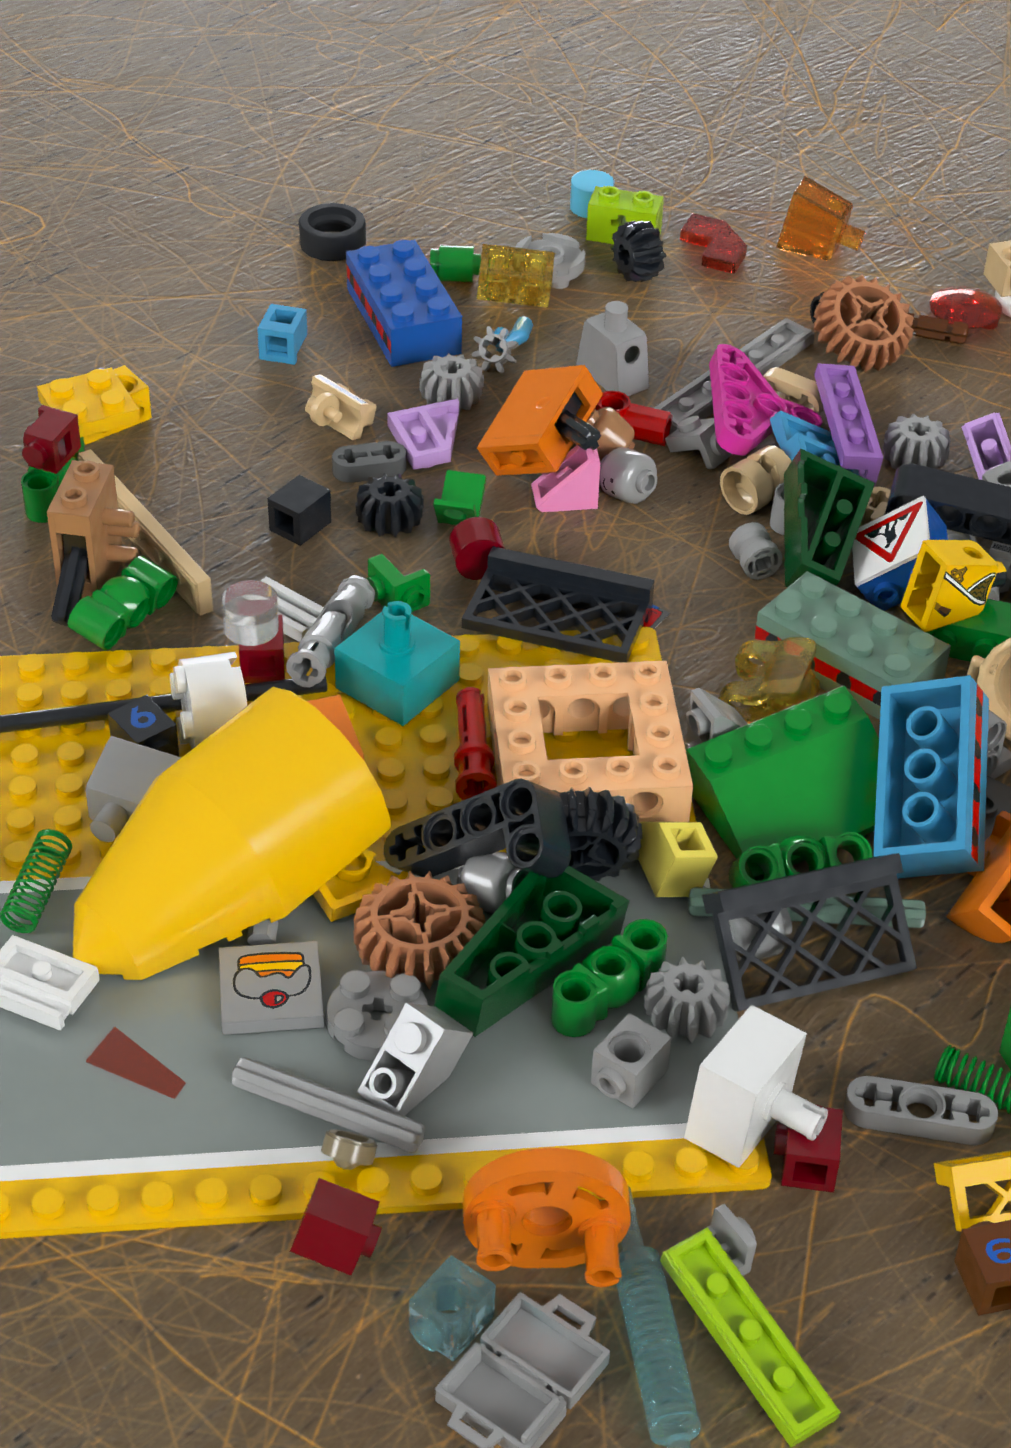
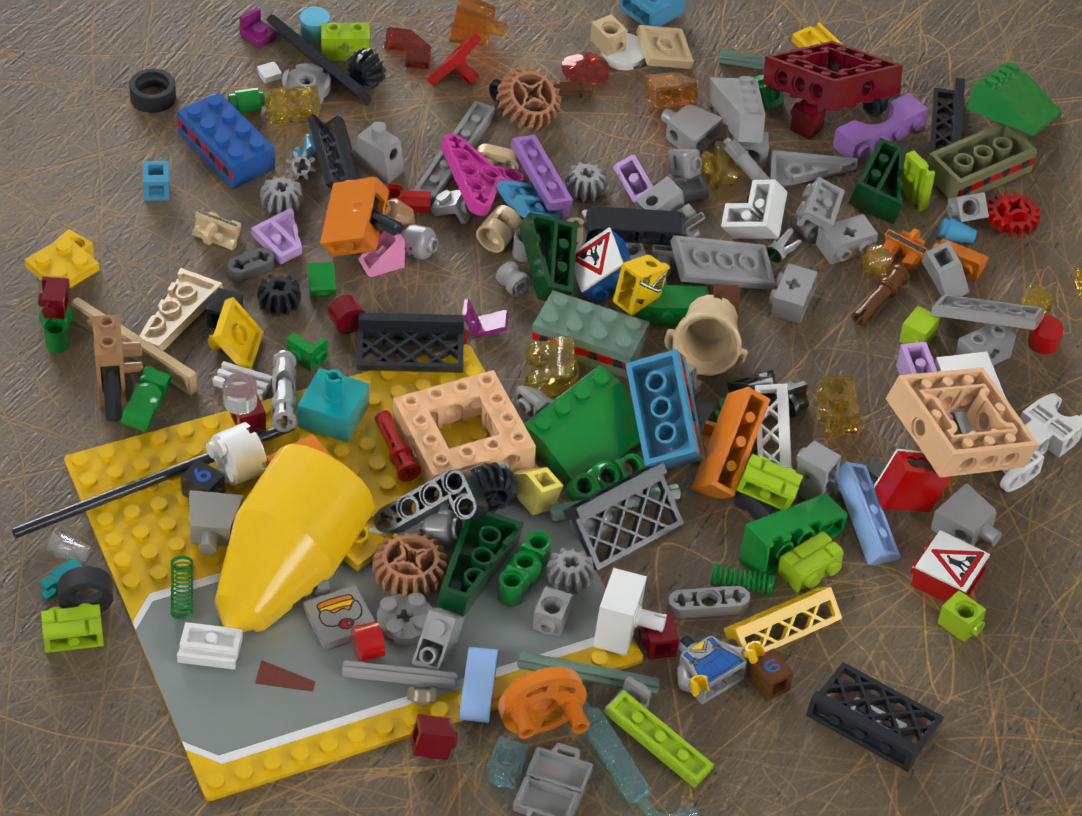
camera: 20 degrees left, 5 degrees up
(232, 499) = (183, 304): none -> tan wing
(292, 1035) = (368, 641): none -> red piece
(297, 541) = (236, 334): none -> yellow tile
(451, 1154) = (478, 684): none -> light blue beam
(505, 237) = (269, 72): none -> white piece
(506, 187) = (255, 30): none -> magenta bracket
(550, 333) = (334, 150): none -> black fence
(576, 229) = (319, 59): none -> black tile
(658, 1180) = (587, 672): none -> sand green axle
(683, 606) = (485, 324): none -> magenta bracket
(773, 262) = (457, 62): none -> red tile
(891, 1225) = (713, 665): none -> torso

